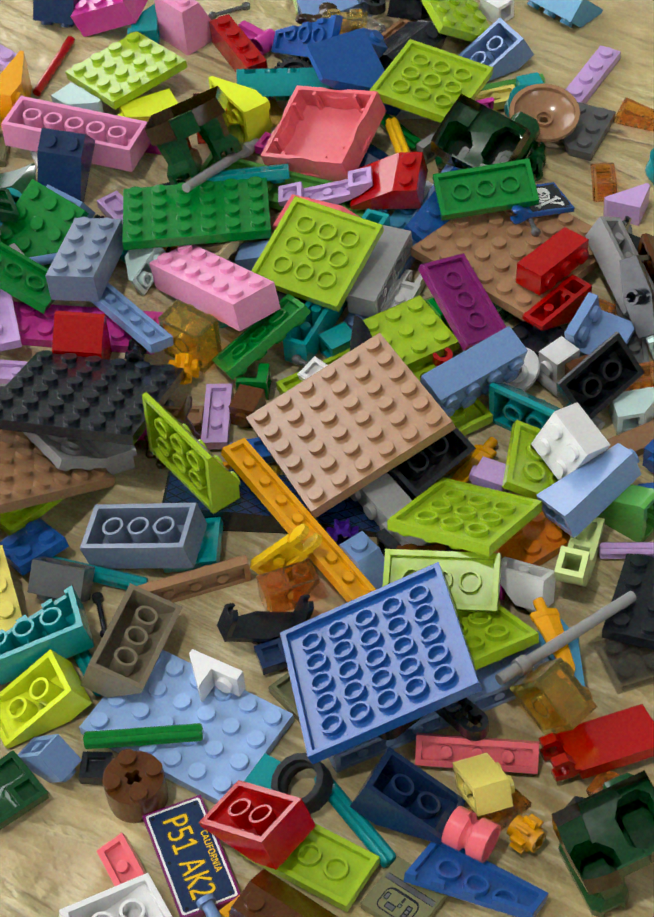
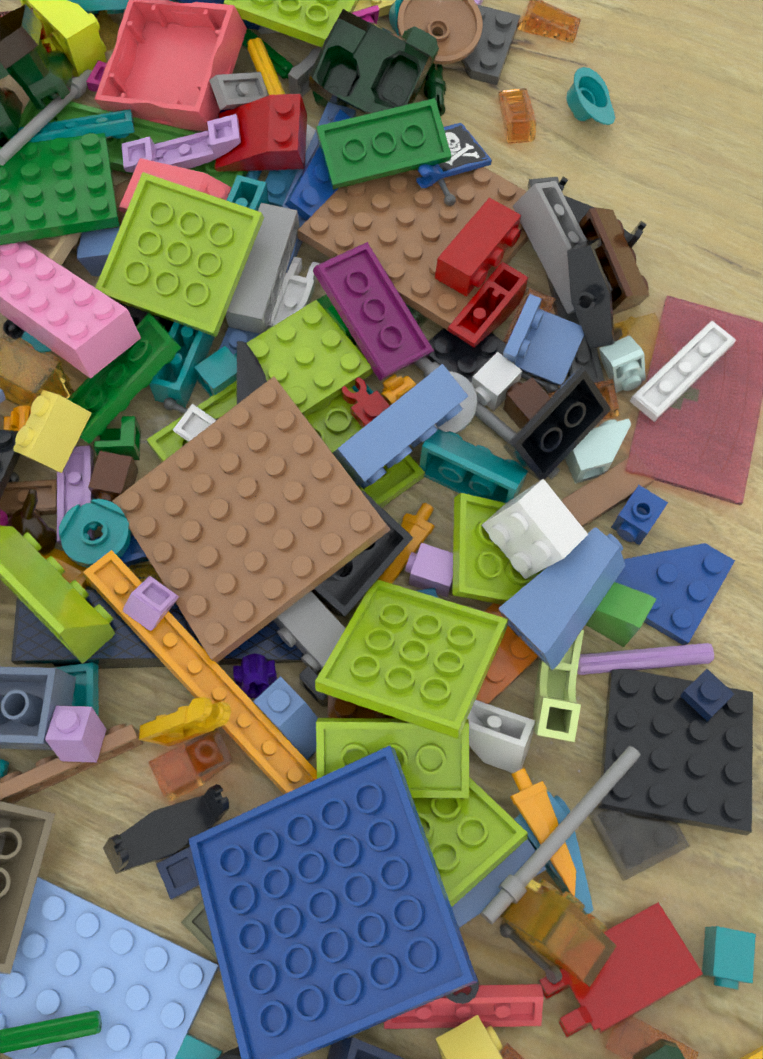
camera: 15 degrees left, 20 degrees up
(205, 366) = (51, 430): none -> light yellow brick
(205, 550) = (76, 734): none -> lavender brick
(212, 672) = (94, 928): white slope -> none
(219, 427) = (89, 516): none -> teal plate
(268, 472) = (149, 603): none -> lavender slope
(372, 150) = (238, 89): none -> light grey plate
(548, 729) = (552, 972): none -> dark grey hinge
(629, 203) = (550, 150): lavender slope -> none

